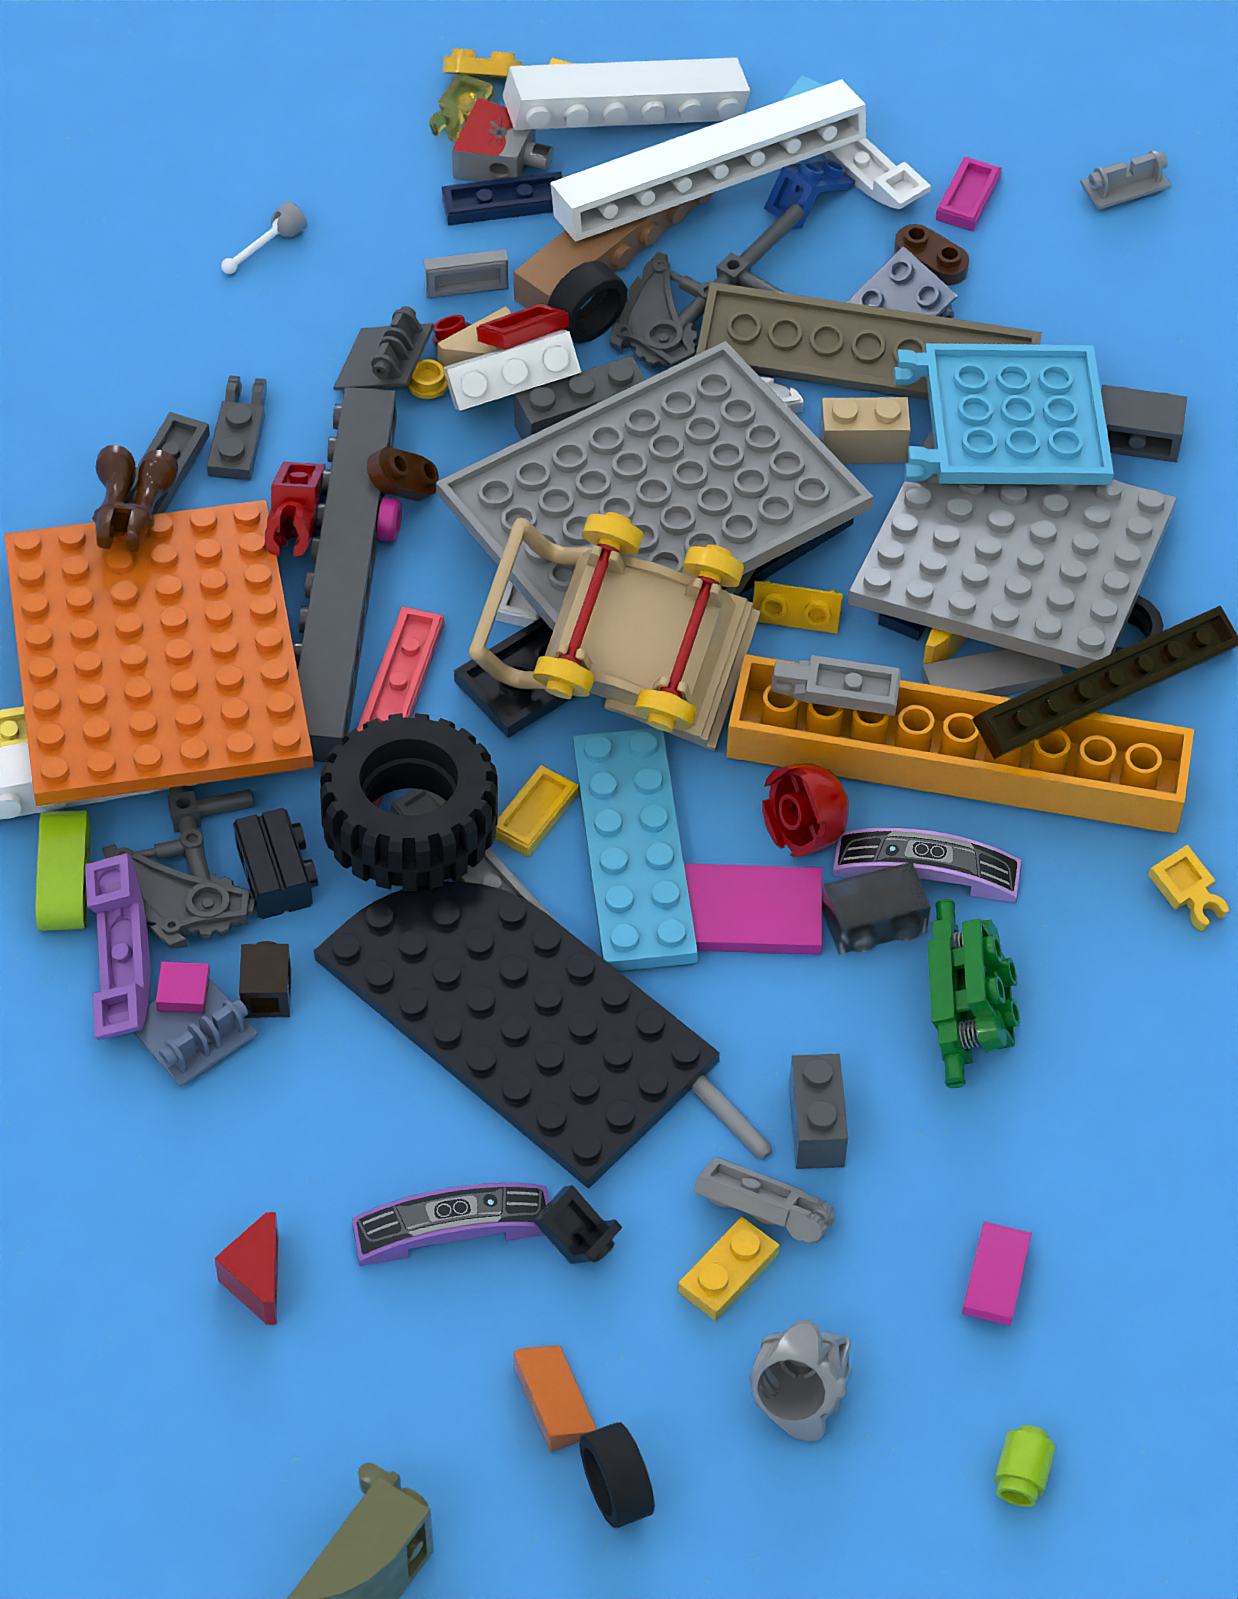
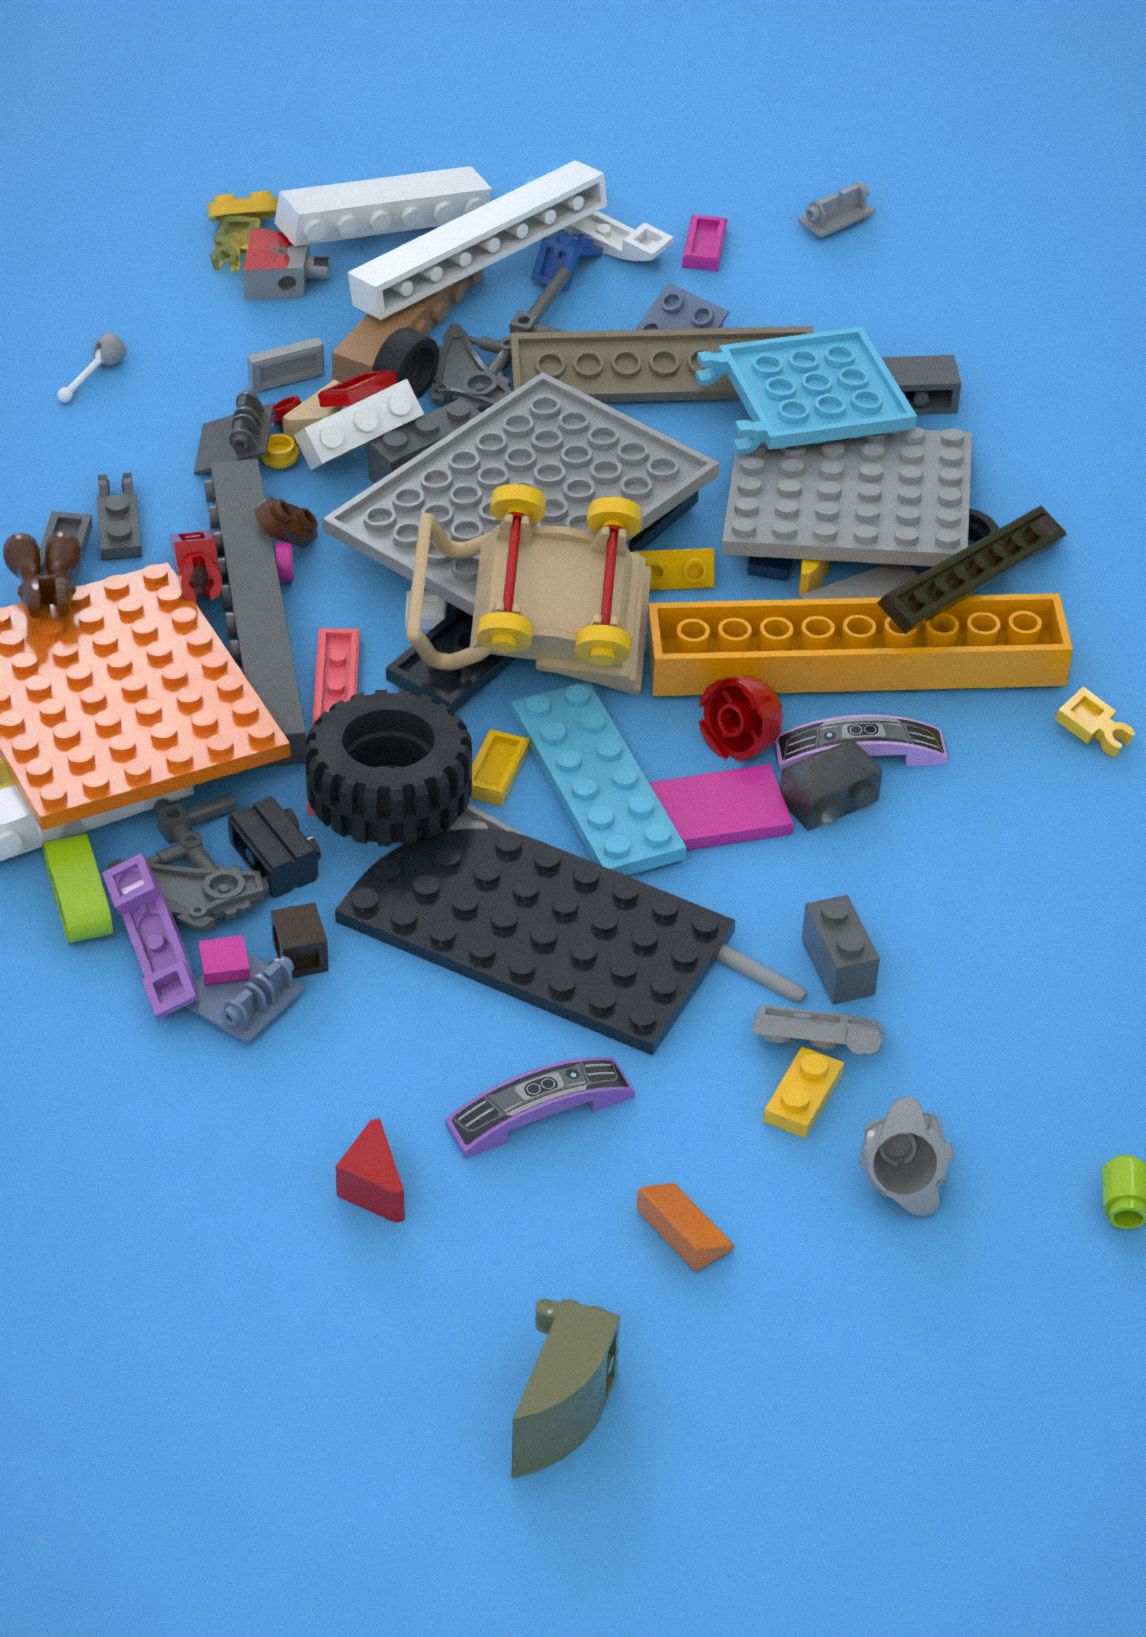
camera: 15 degrees left, 10 degrees down
(499, 198) = (296, 306): dark blue tile -> none
(576, 1227) = (657, 1083): black bracket -> none
(617, 1474) = (771, 1267): black tyre -> none
(839, 683) = (743, 607): light grey hinge -> none
(866, 429) = (691, 419): tan brick -> none
(936, 252) = (702, 287): reddish brown plate -> none
(969, 990) = (930, 831): green piece -> none
(996, 1273) = (1043, 1047): dark pink slope -> none

